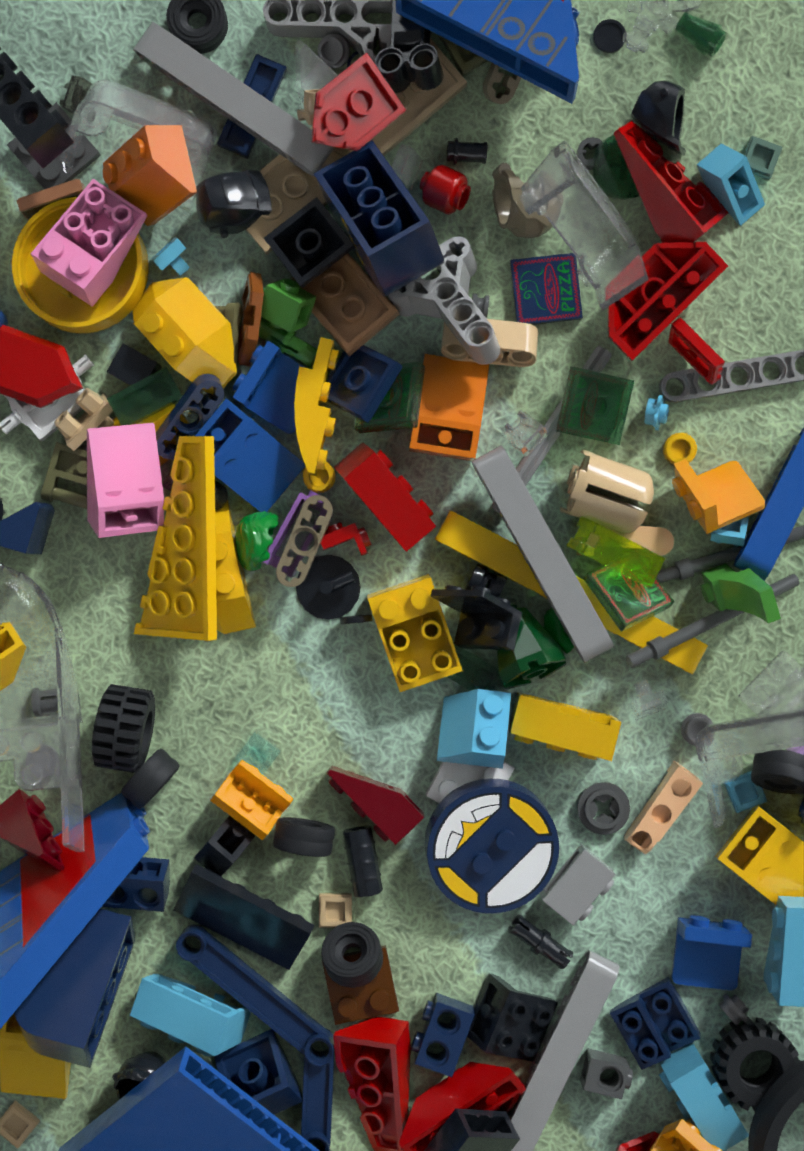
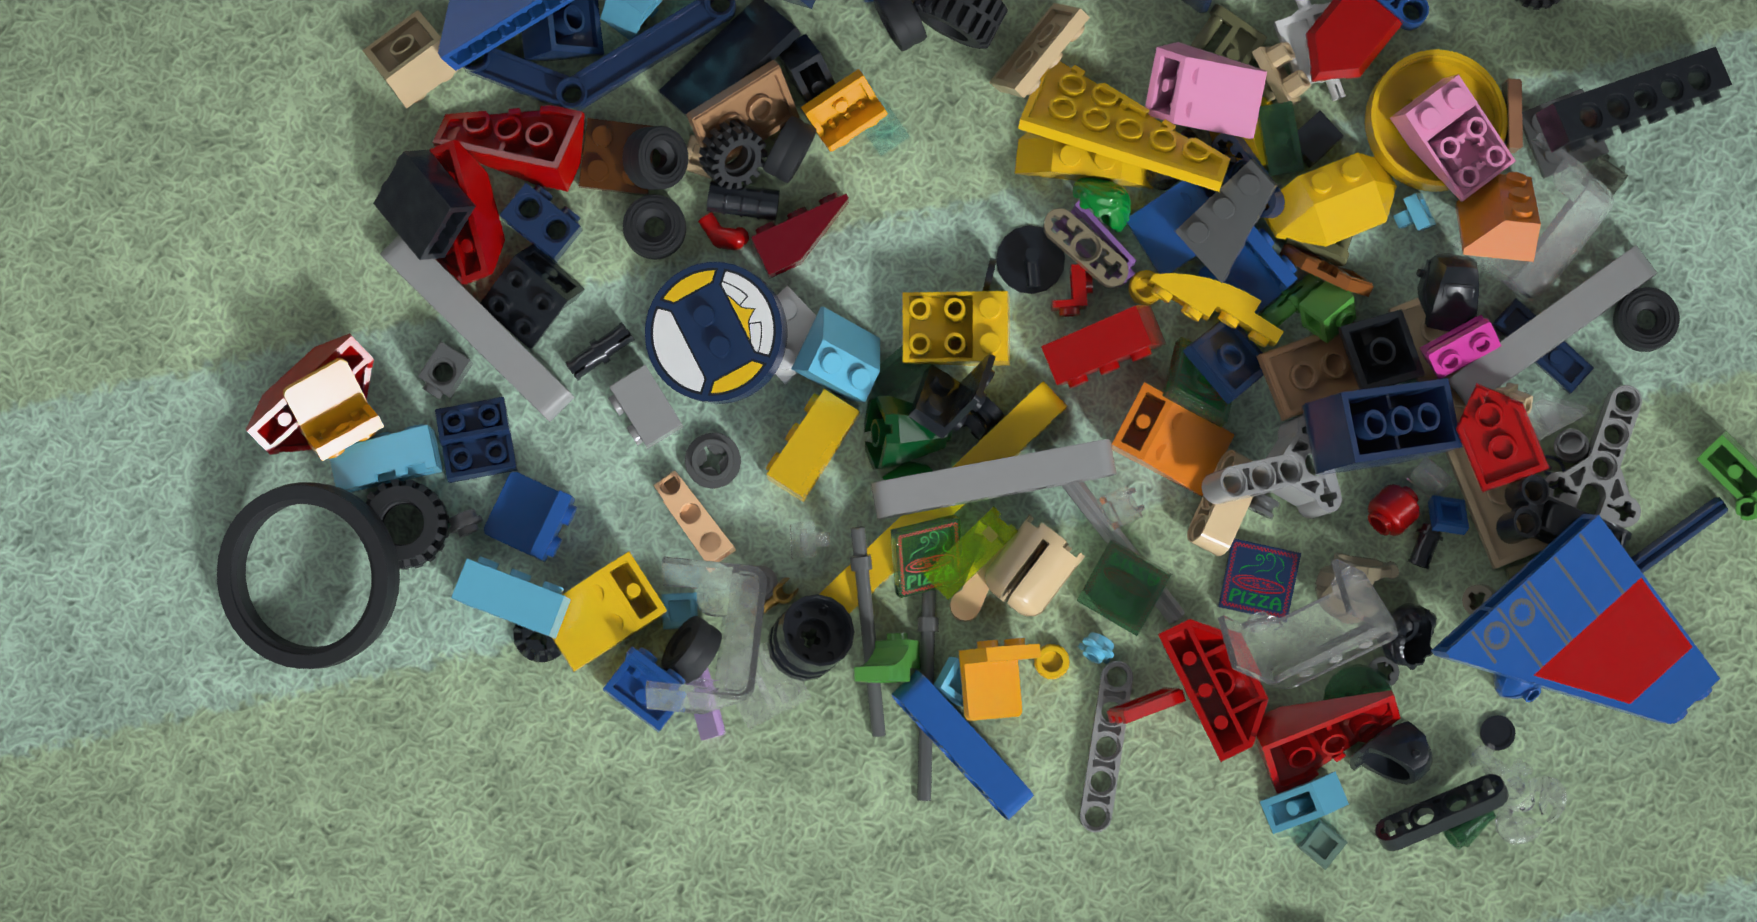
camera: 100 degrees right, 5 degrees down
(137, 641) = (1040, 50): none -> tan plate
(236, 421) = (1226, 219): none -> dark grey wing
(279, 172) = (1460, 346): none -> dark pink bracket
(287, 891) = (757, 100): none -> medium nougat tile
(318, 900) = (722, 144): none -> black tyre
(401, 867) = (721, 236): none -> red arm
(413, 950) = (654, 207): none -> black tyre
(433, 139) = (1448, 515): none -> blue tile
(544, 135) = (1415, 630): none -> black hair
(696, 61) = (1443, 816): none -> black beam
(704, 709) = (779, 596): none -> pearl gold hand
(725, 655) = (828, 635): none -> black wheel

